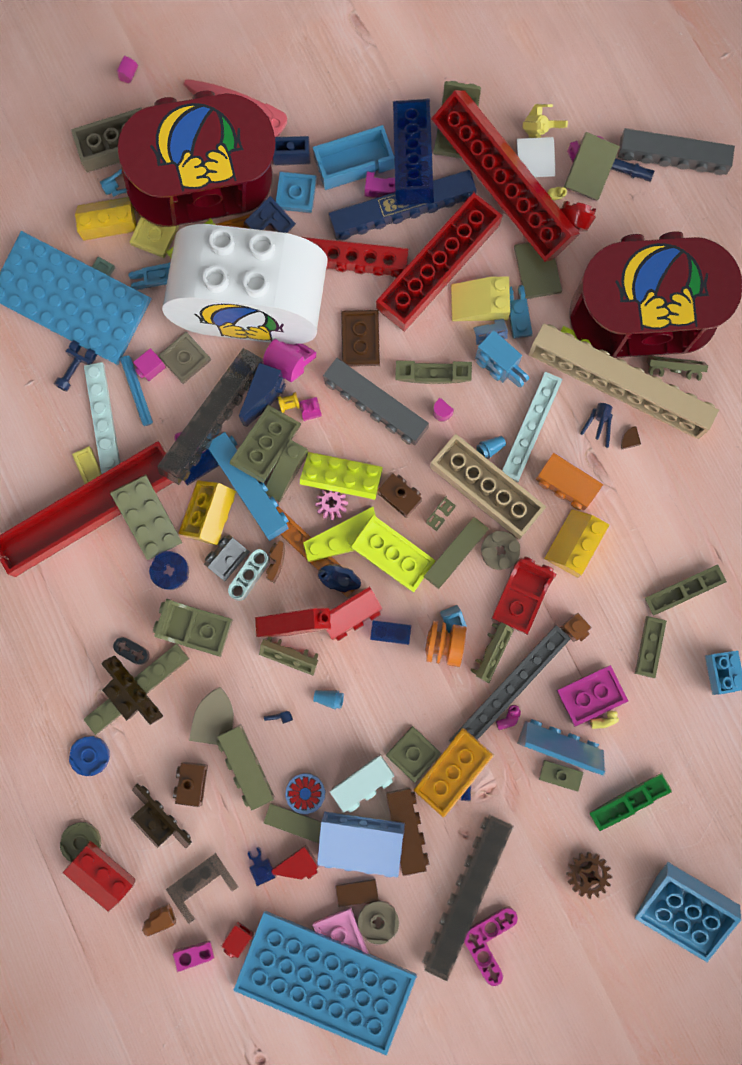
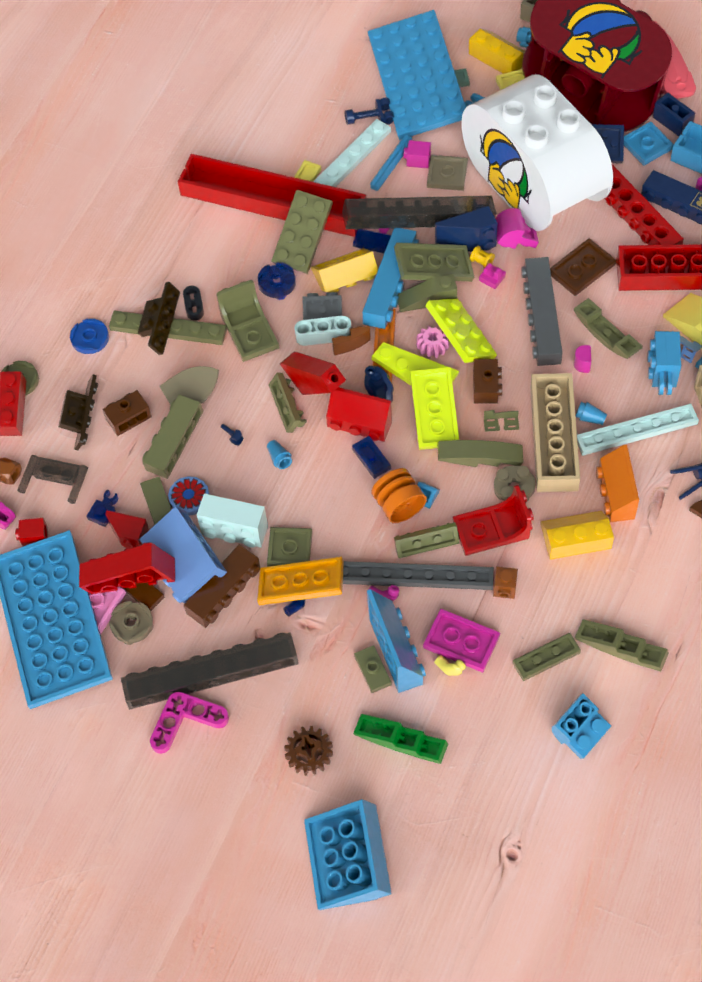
camera: 50 degrees right, 20 degrees down
(343, 901) = (126, 569): none -> red wedge

